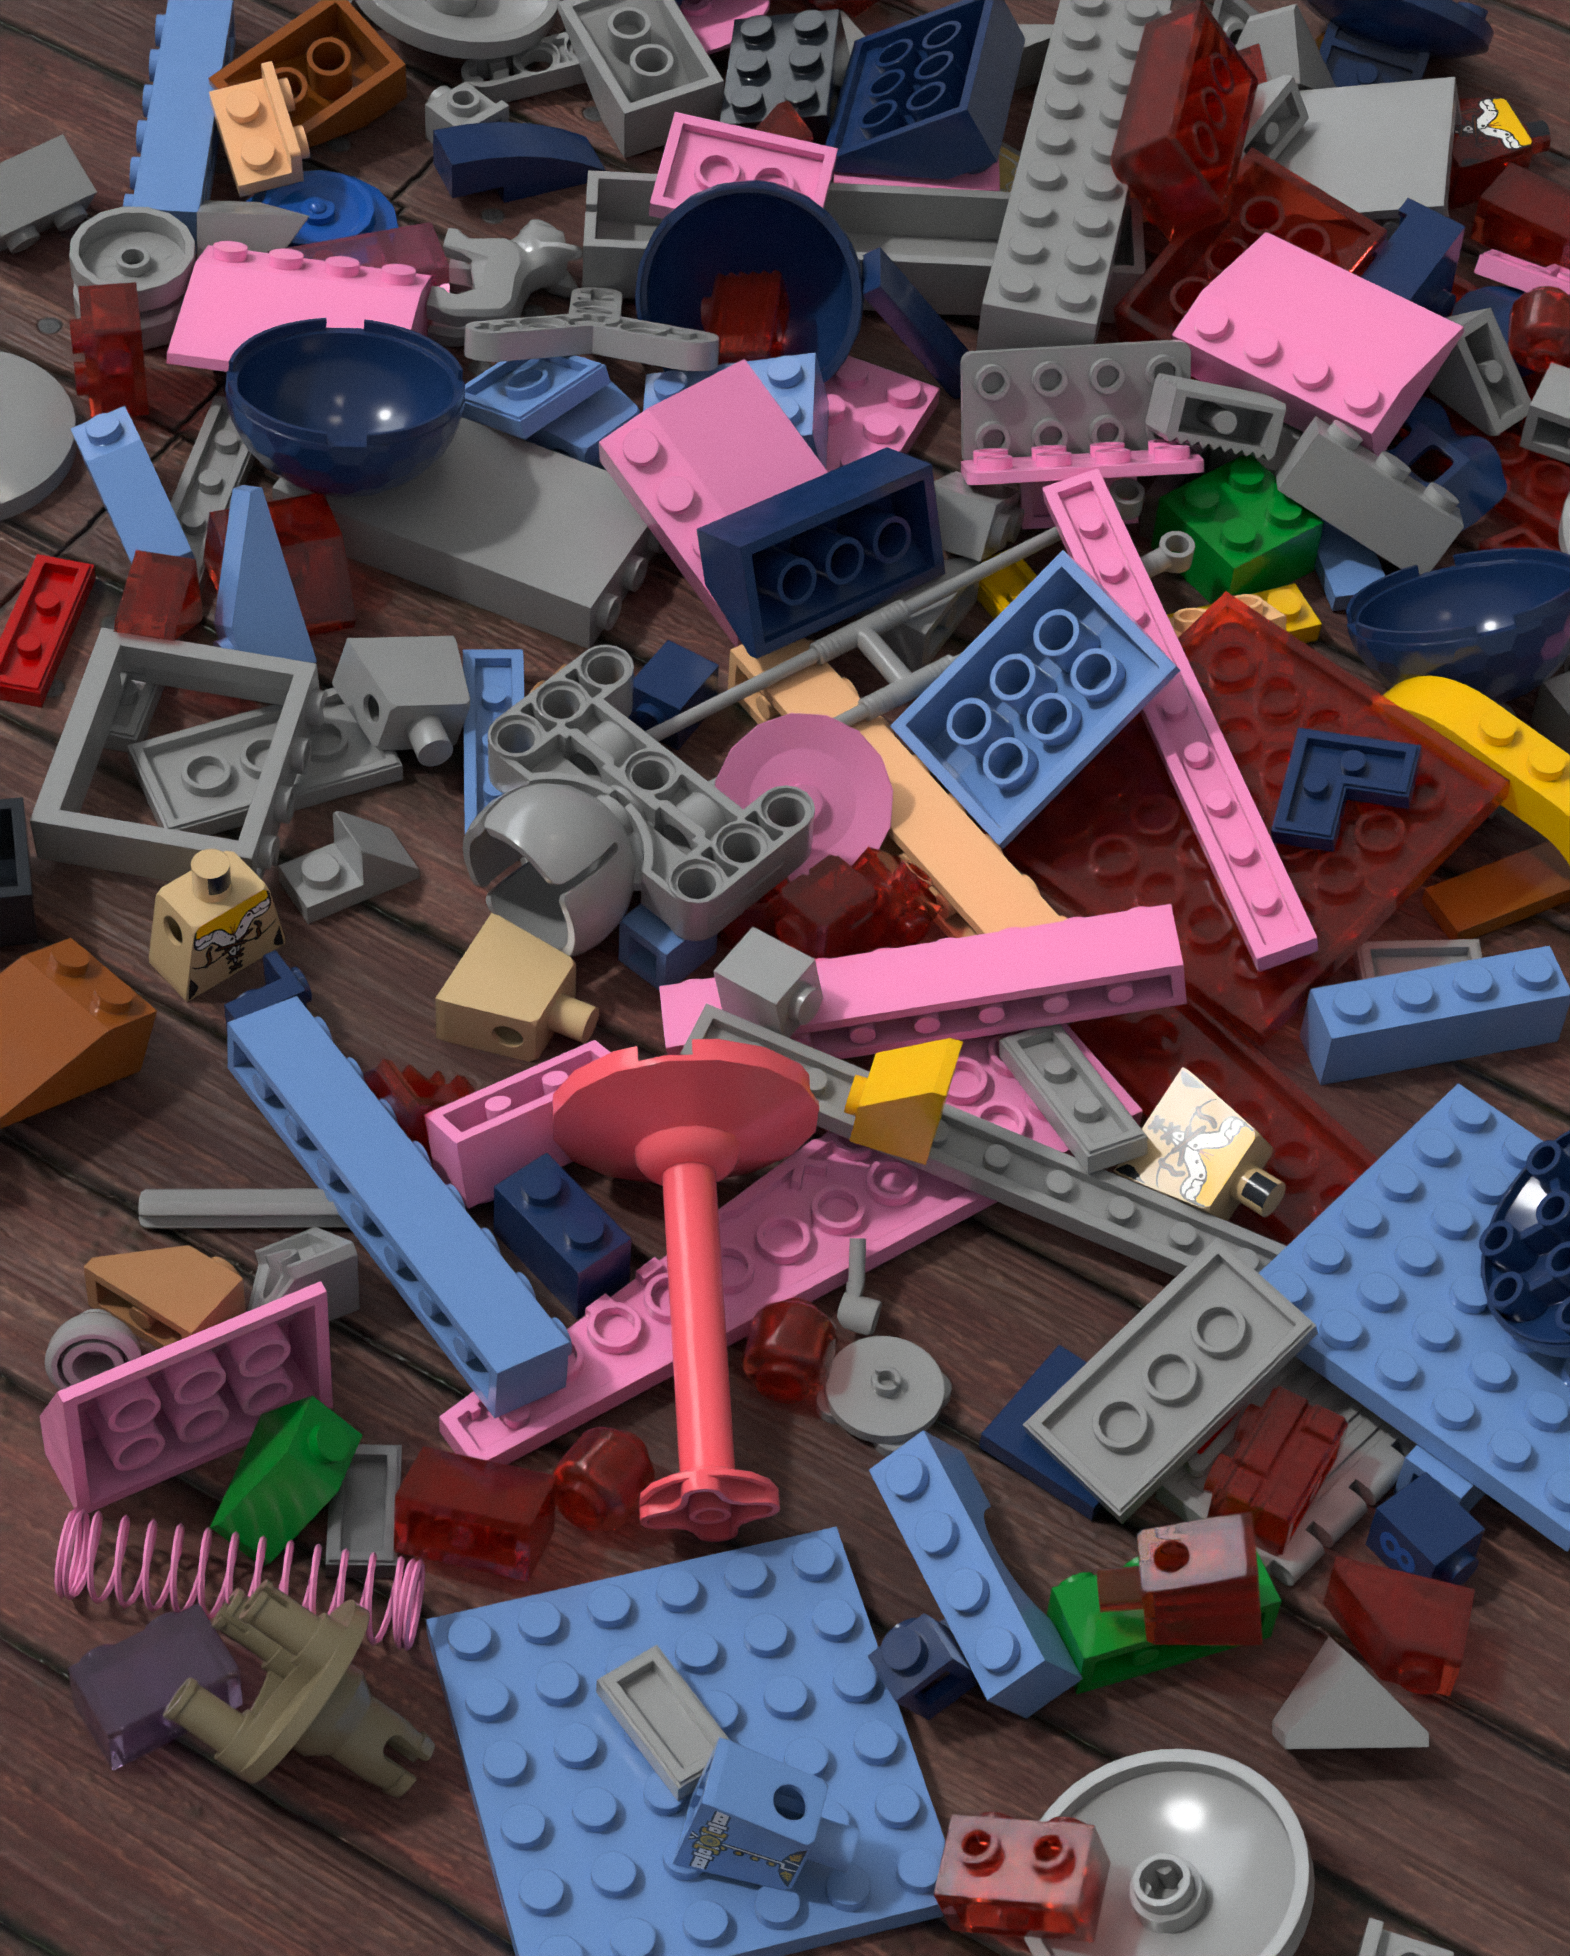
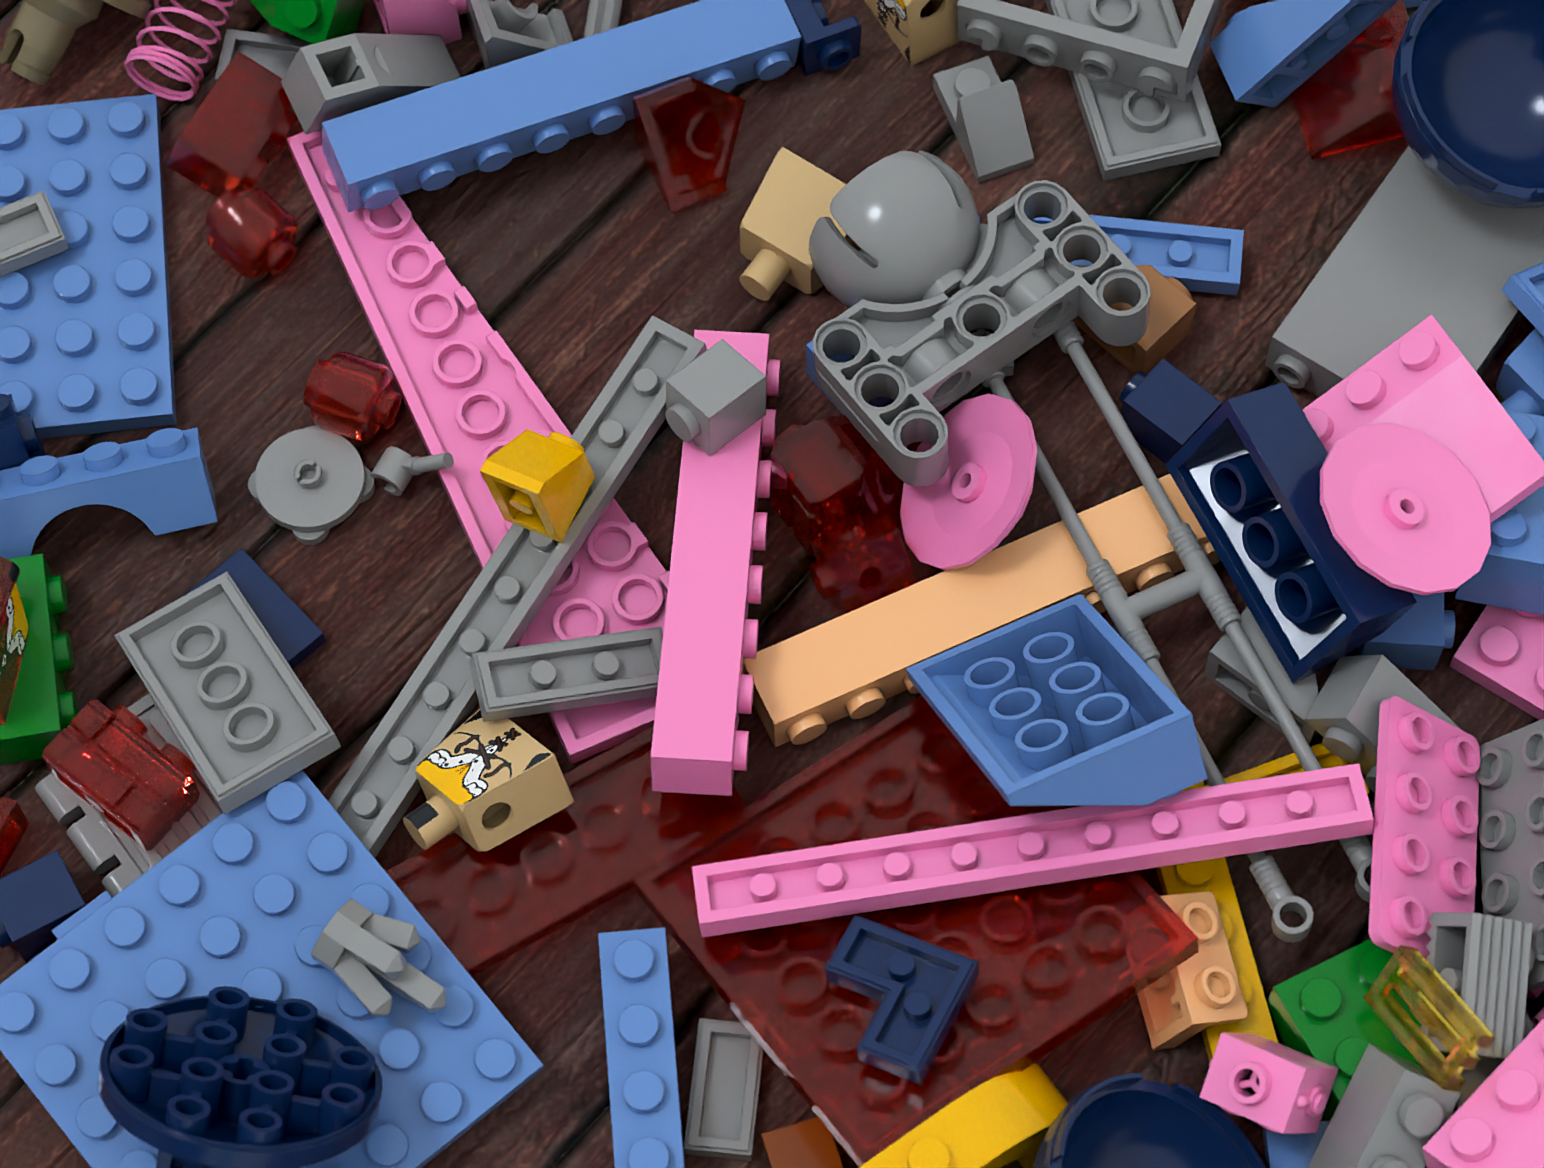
camera: 105 degrees right, 15 degrees up
(405, 693) = (1178, 170): light grey torso -> none
(415, 1380) = (362, 72): none -> light grey slope
(501, 1126) = (633, 215): bright pink brick -> none
(561, 1234) = (513, 231): dark blue brick -> none
(686, 1129) = (544, 297): coral piece -> none
(811, 444) = (1405, 508): none -> bright pink piece
(1222, 466) = (1462, 1049): none -> clear yellow tile
(1325, 559) = (1268, 1083): none -> bright pink head
(1421, 1200) = (366, 951): none -> light grey rock

